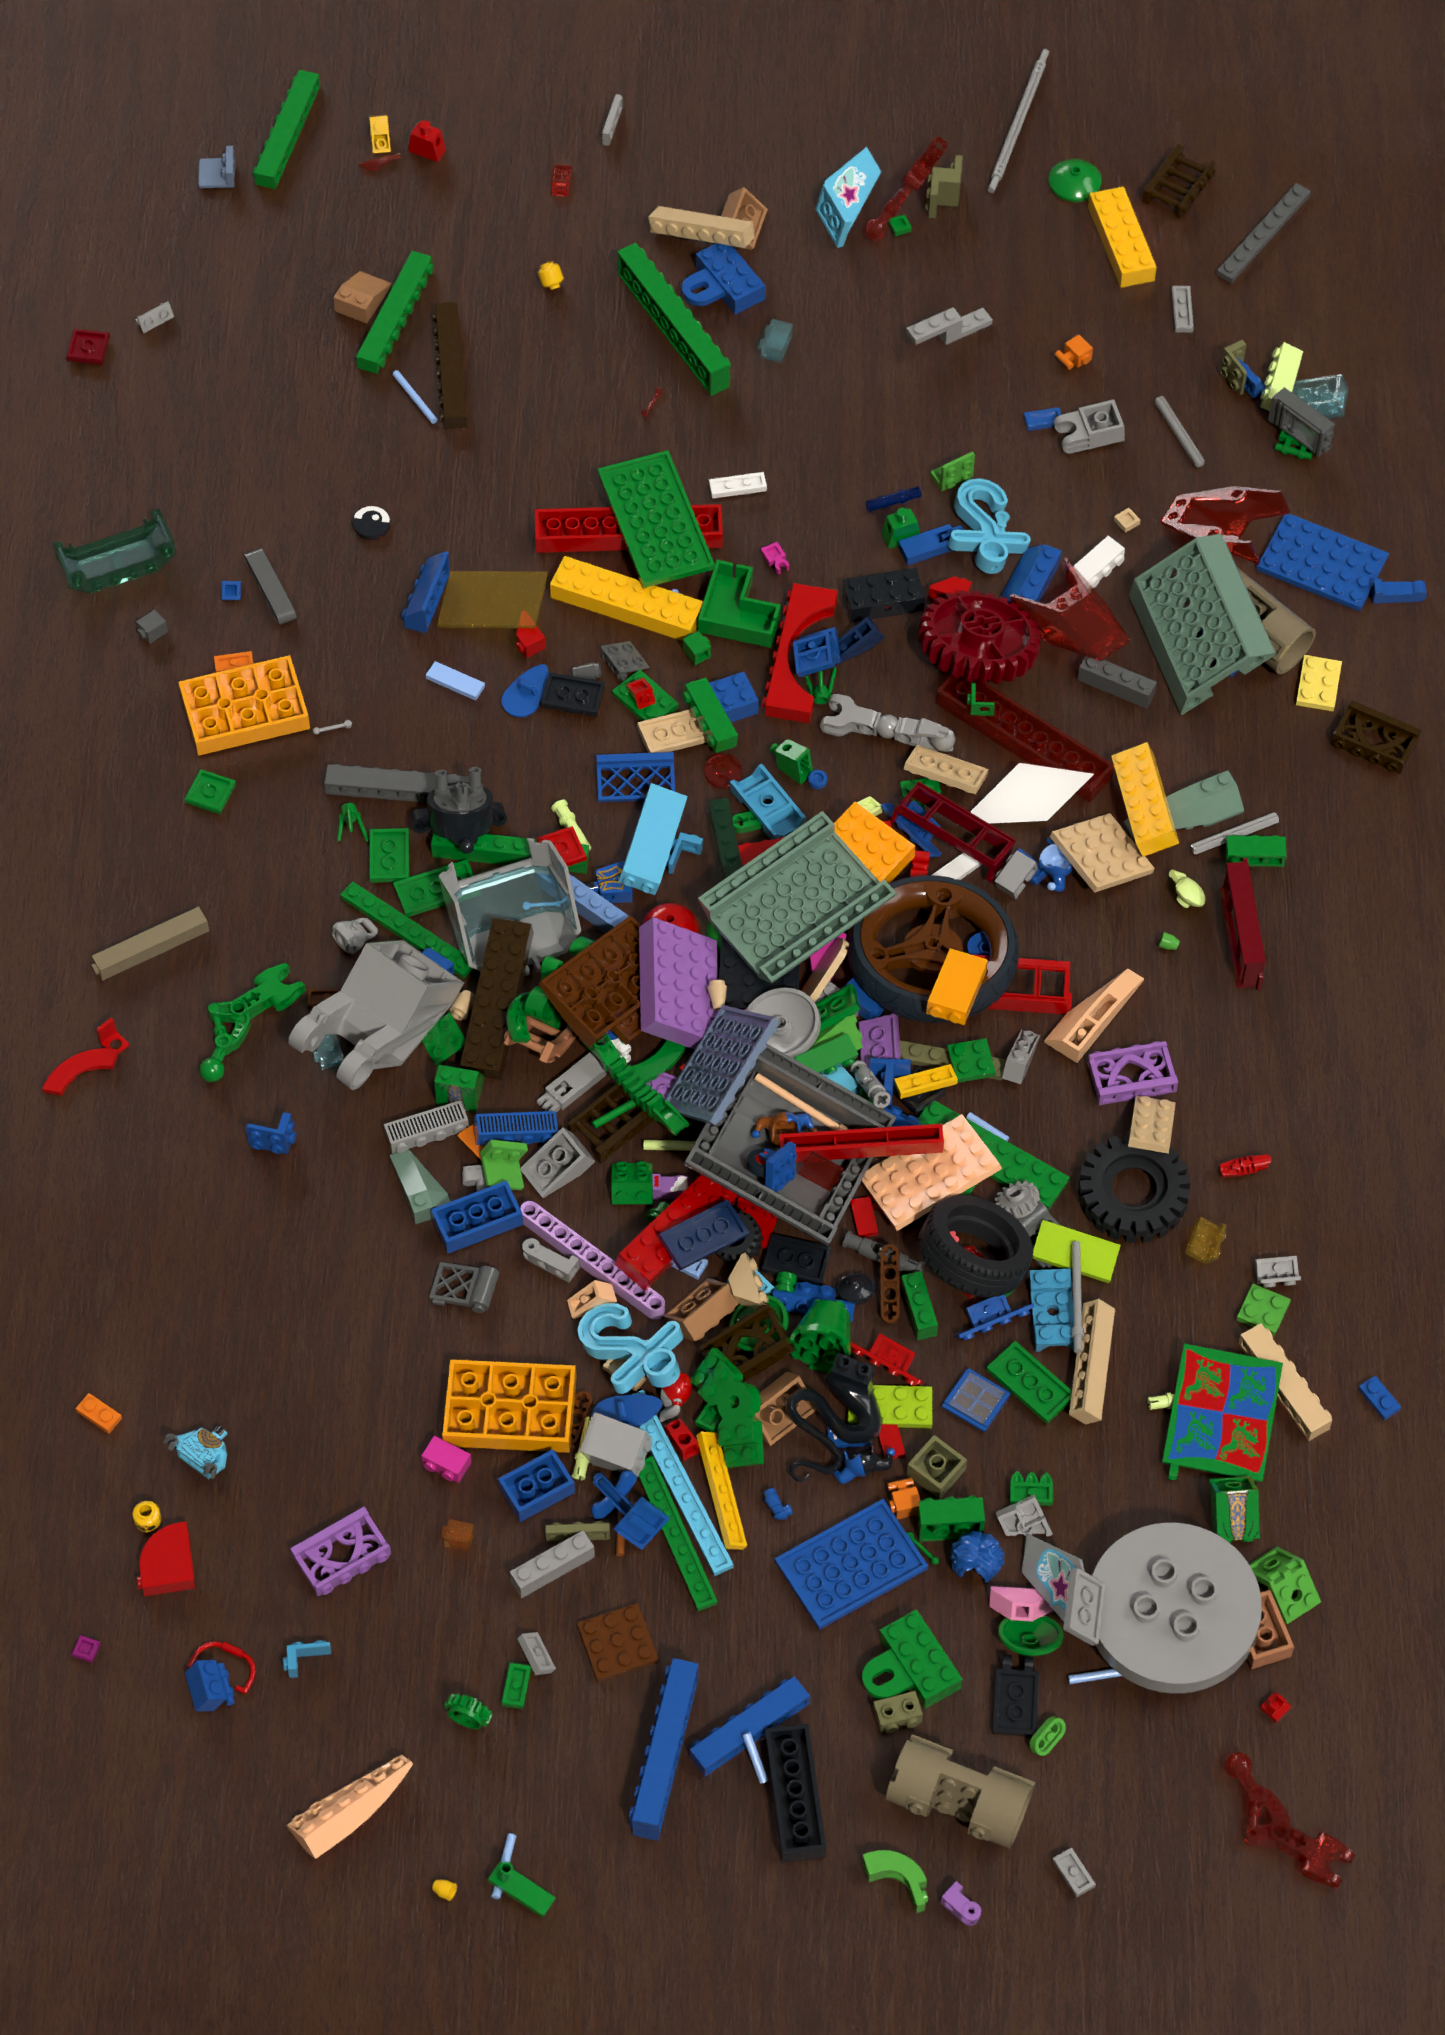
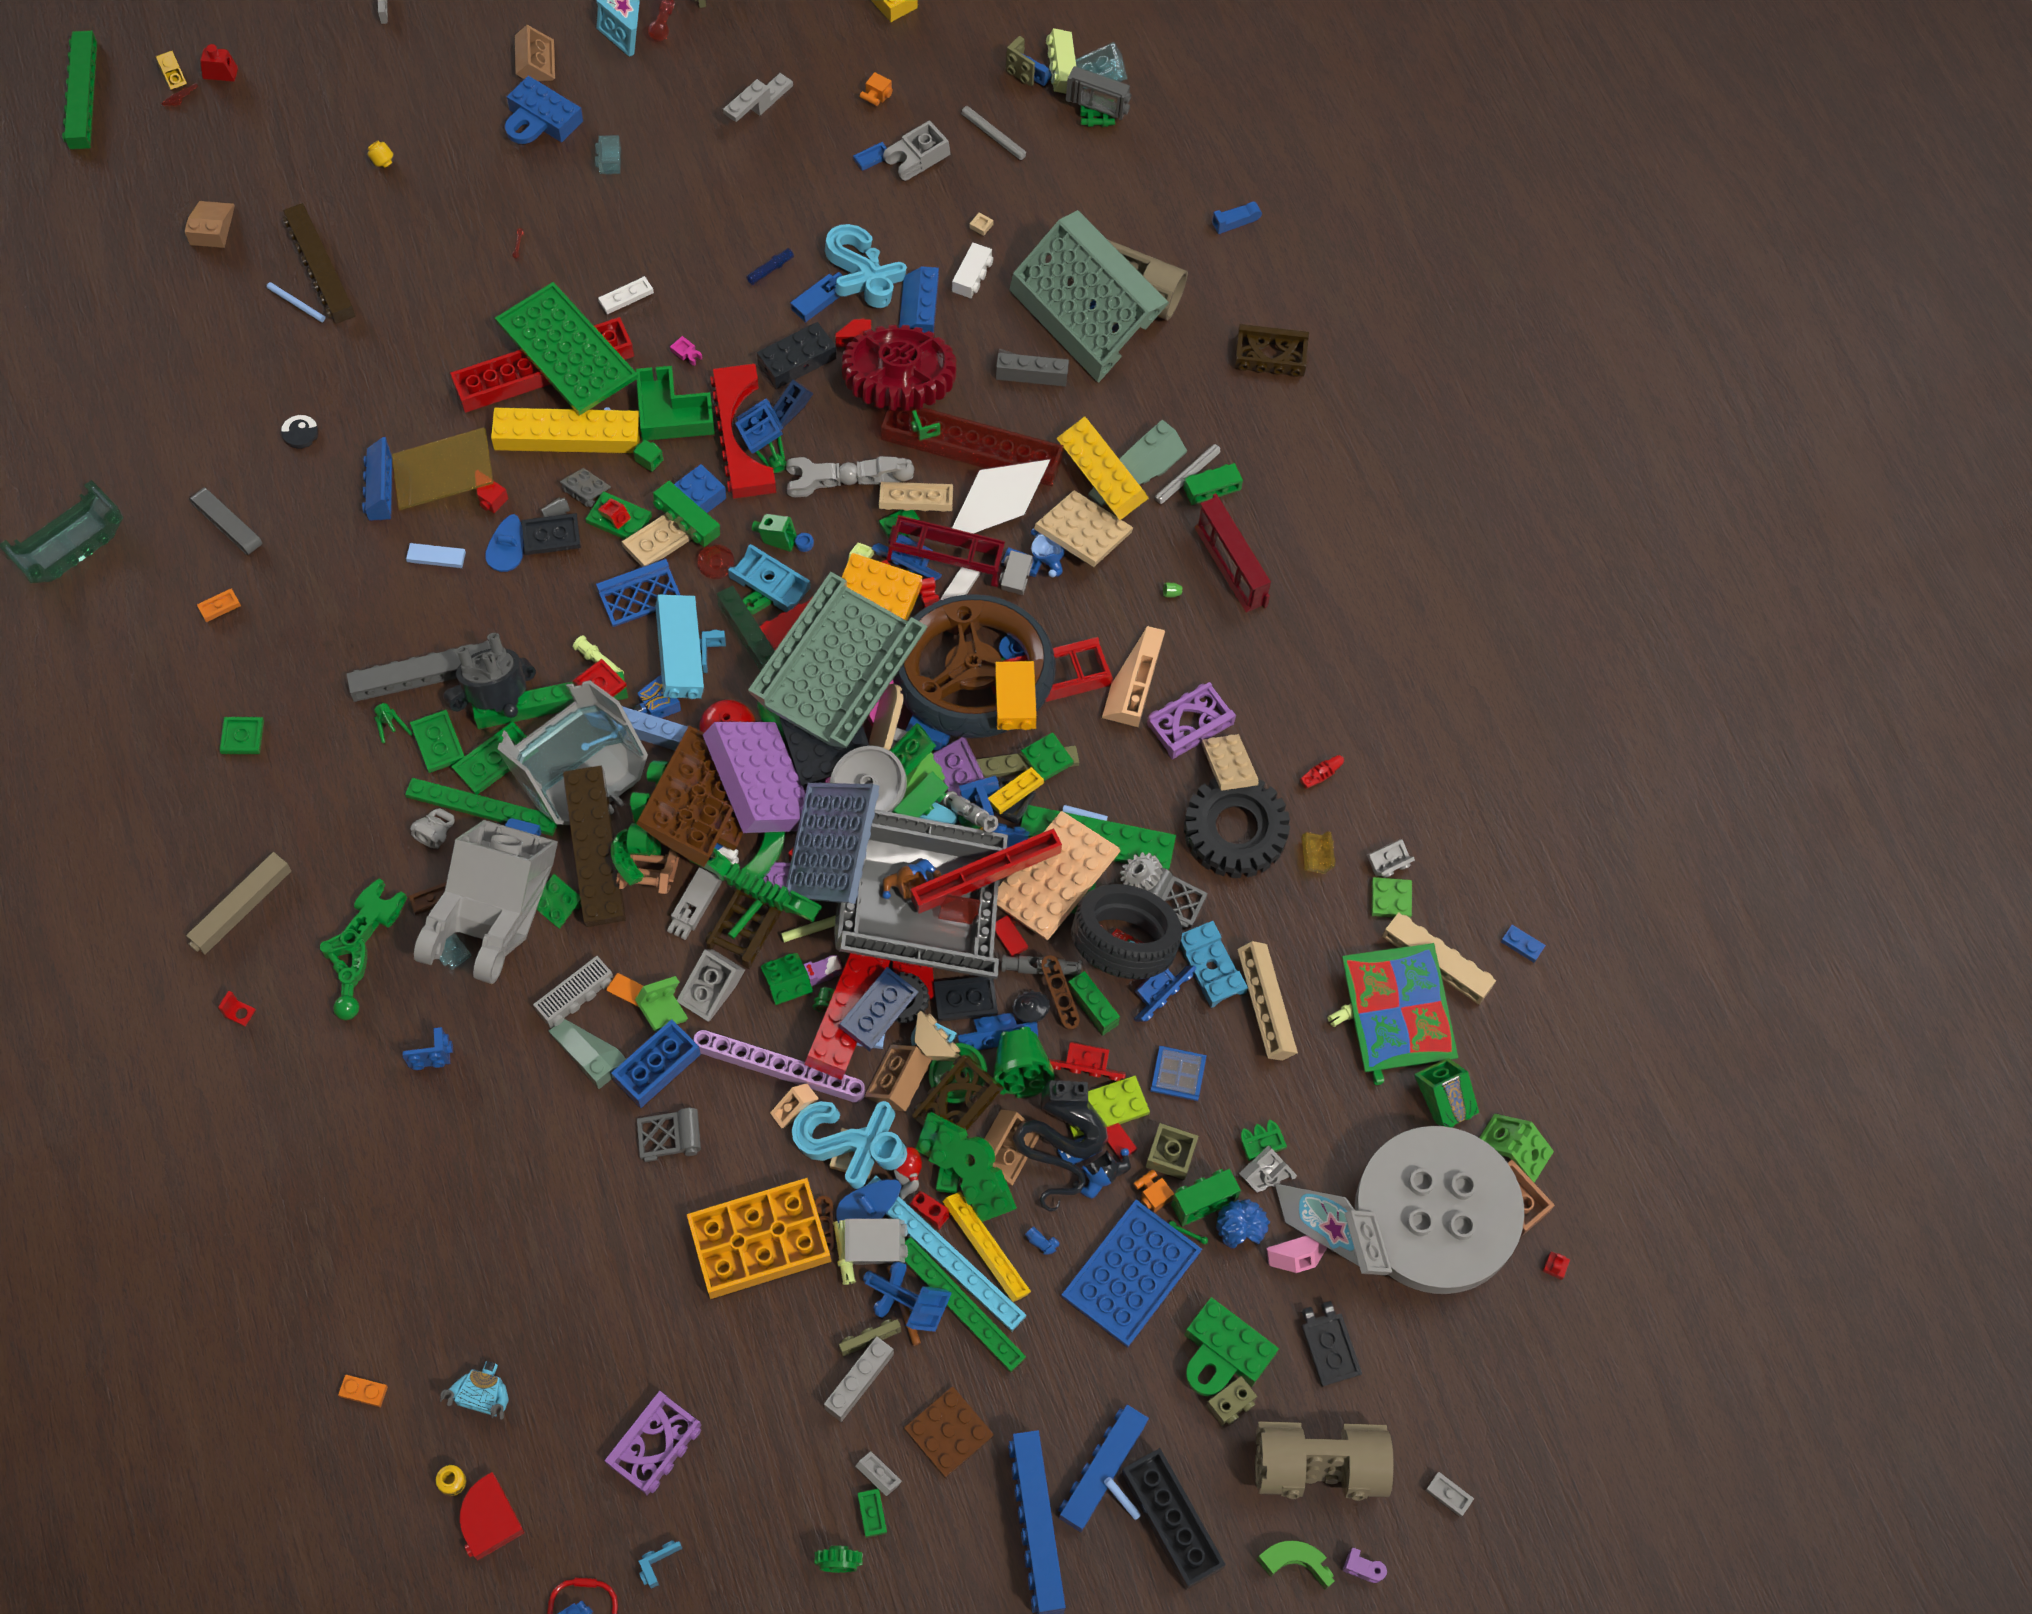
camera: 25 degrees left, 5 degrees up
(85, 1061) = (205, 1054): red tile -> none
(151, 626) = (125, 595): dark grey brick -> none
(155, 317) = (18, 299): light grey hinge -> none
(218, 171) = (28, 147): sand blue bracket -> none
(231, 590) = (189, 536): blue slope -> none
(244, 705) = (244, 642): light orange brick -> none
(347, 724) = (349, 628): light grey hinge -> none
(395, 312) = (247, 229): green brick -> none
(446, 1459) = (718, 1312): dark pink brick -> none
(458, 1084) = (590, 942): green slope -> none
(458, 1535) = (758, 1383): clear orange brick -> none
(462, 1005) = (563, 862): tan brick -> none
(474, 1177) = (638, 1022): light grey piece -> none
(515, 1127) = (659, 964): blue brick -> none
(536, 1485) = (814, 1307): blue brick -> none
(549, 1260) = (739, 1080): light grey leg -> none
(561, 180) = (356, 66): clear red tile -> none
(673, 319) = (509, 161): green brick -> none
(701, 226) = (502, 71): tan brick -> none
(717, 992) = (798, 773): tan cone -> none
(774, 1165) = (916, 920): blue plate -> none
(786, 1281) = (965, 1024): green wheel -> none
(799, 1103) = (958, 863): light nougat bar -> none
(899, 225) = (677, 21): green plate -> none
(899, 527) = (786, 290): green torso -> none
(954, 472) = (814, 225): bright green bracket -> none
(1020, 1056) = (1088, 738): light grey slope -> none
(1030, 1382) = (1220, 1039): green plate -> none
(1031, 1637) = (1323, 1283): green dish -> none
(1047, 1738) = (1373, 1371): bright green plate -> none
(1055, 1248) = (1210, 902): lime tile -> none
(1076, 619) = (977, 325): clear red windscreen -> none
(1077, 1330) = (1245, 978): light grey bar -> none
(1091, 1676) = (1387, 1297): light blue piece -> none
(1182, 309) = (952, 25): light grey tile -> none
(1188, 890) = (1170, 537): yellowish green animal -> none
(1225, 513) = (1064, 193): clear red windscreen -> none
(1312, 1852) = (1648, 1391): clear red piece -> none
(1318, 683) = (1203, 318): light yellow plate -> none
(1322, 561) = (1161, 210): blue plate -> none

